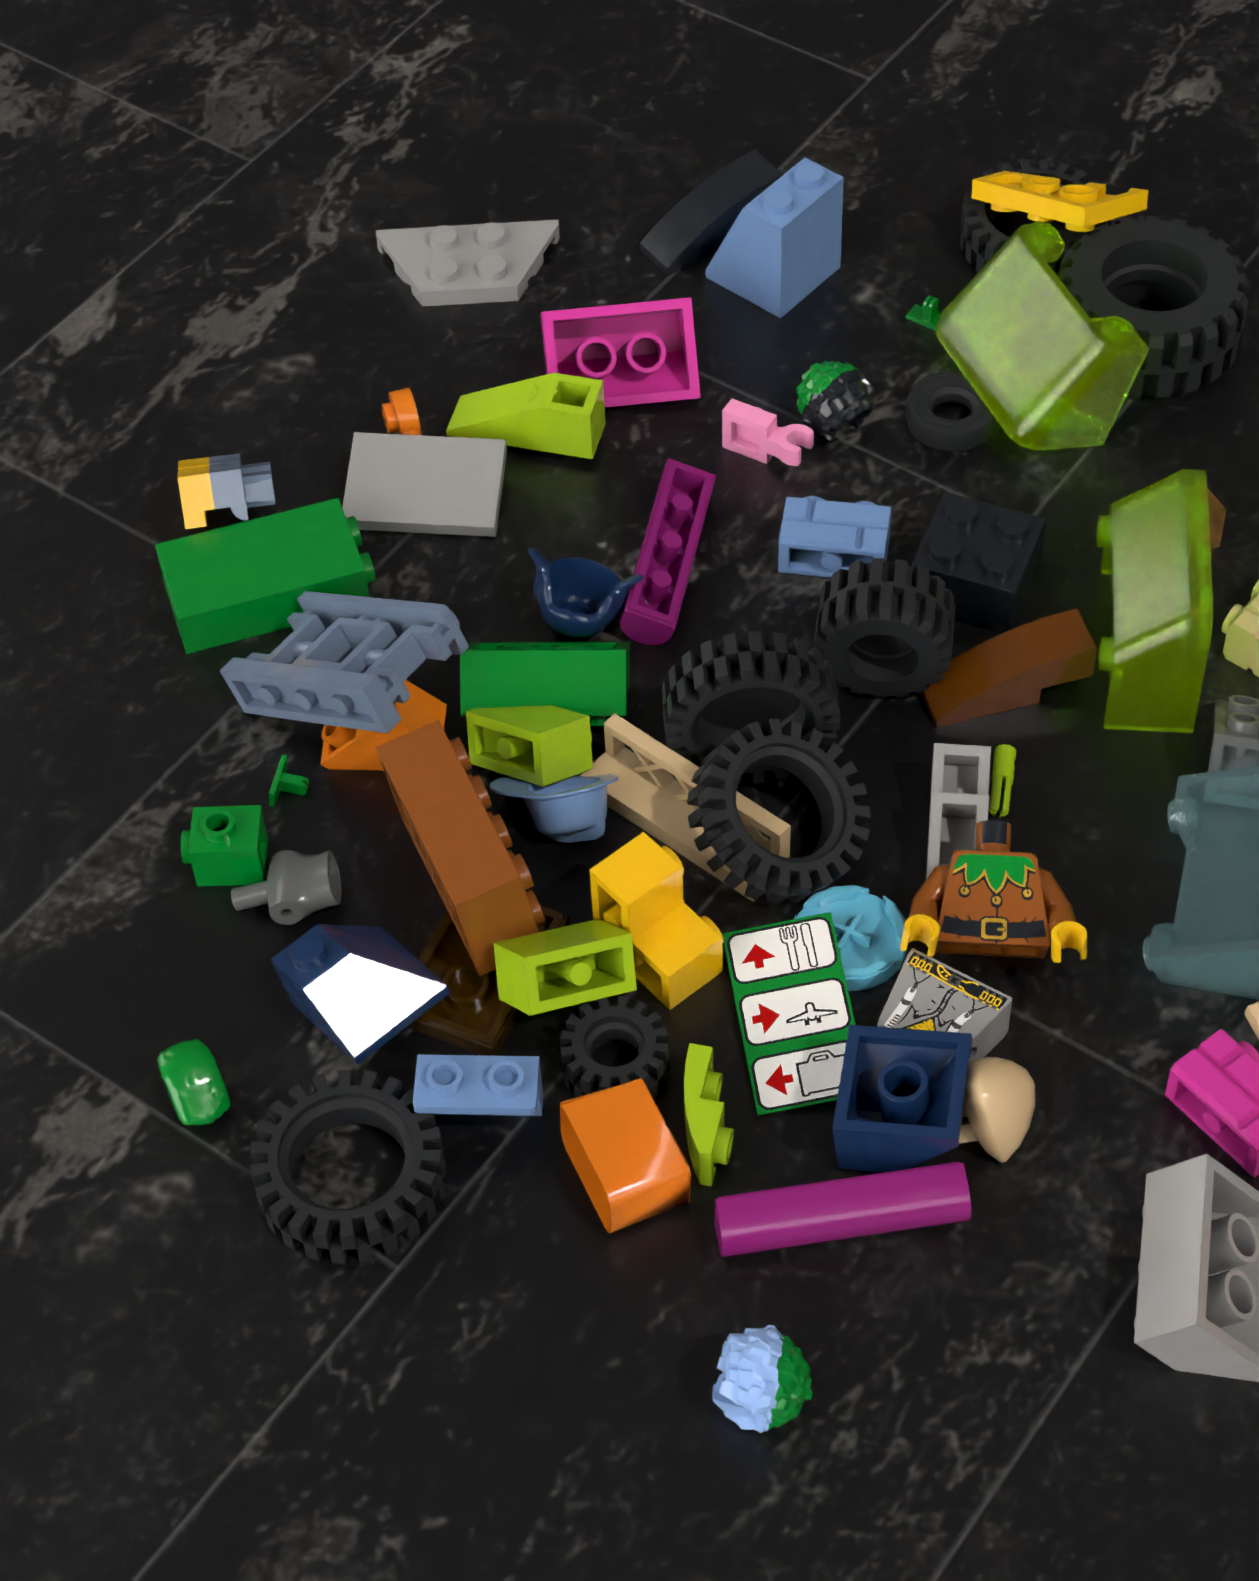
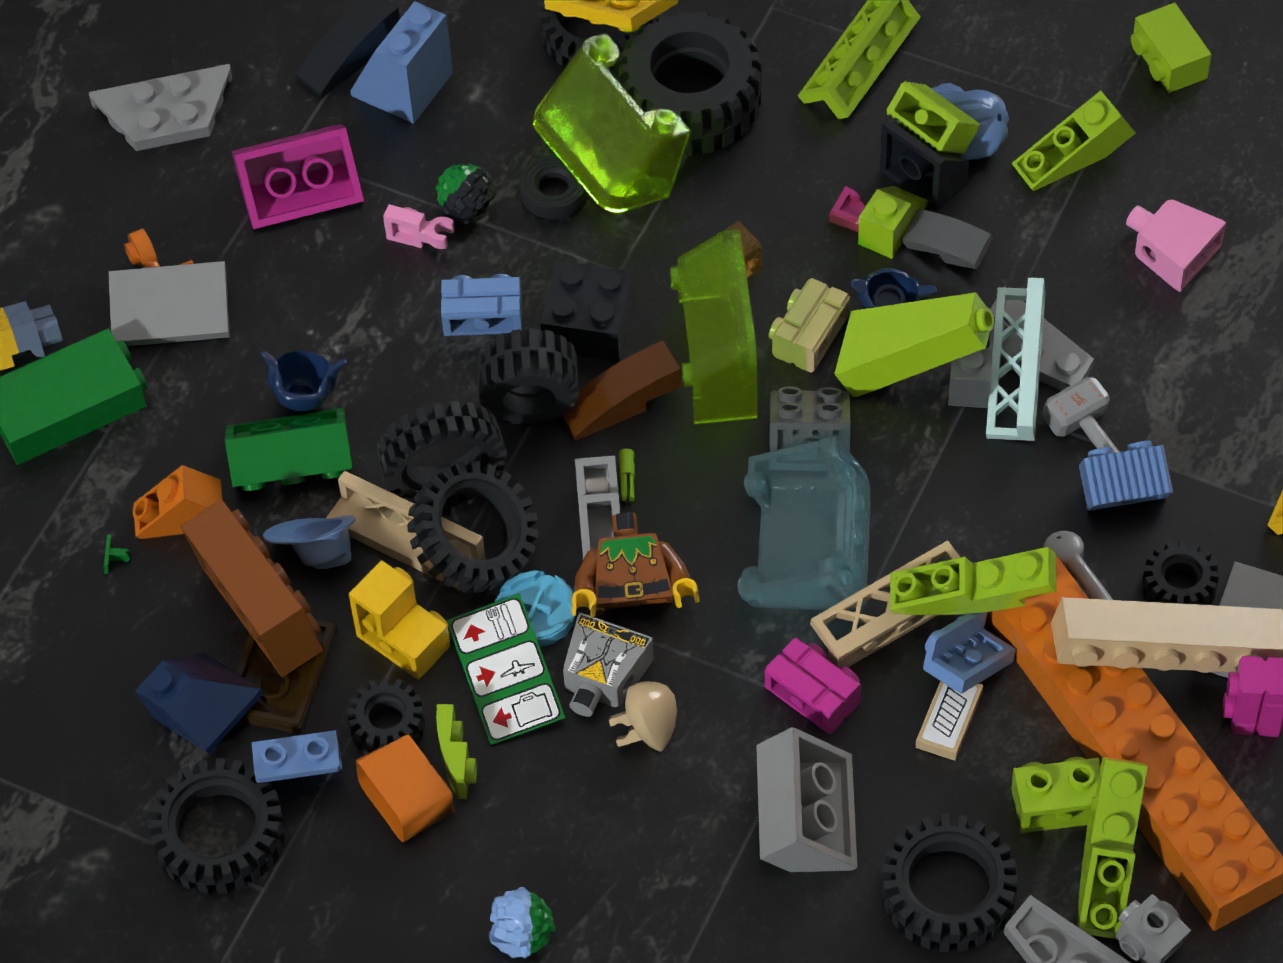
camera: 10 degrees left, 5 degrees up
(193, 1082) = (96, 785): green hair -> none
(226, 845) = (82, 610): green brick -> none
(294, 887) = (137, 632): dark grey piece -> none
(345, 660) = (161, 481): sand blue fence -> none
(530, 742) = (286, 499): lime slope -> none
(538, 413) = (241, 236): lime slope -> none
(565, 966) = (341, 663): lime brick -> none
(667, 553) = (360, 333): magenta brick -> none
(842, 1209) = (557, 801): magenta brick -> none
(899, 1097) = (585, 719): dark blue slope -> none
(927, 314) = (523, 106): green piece -> none

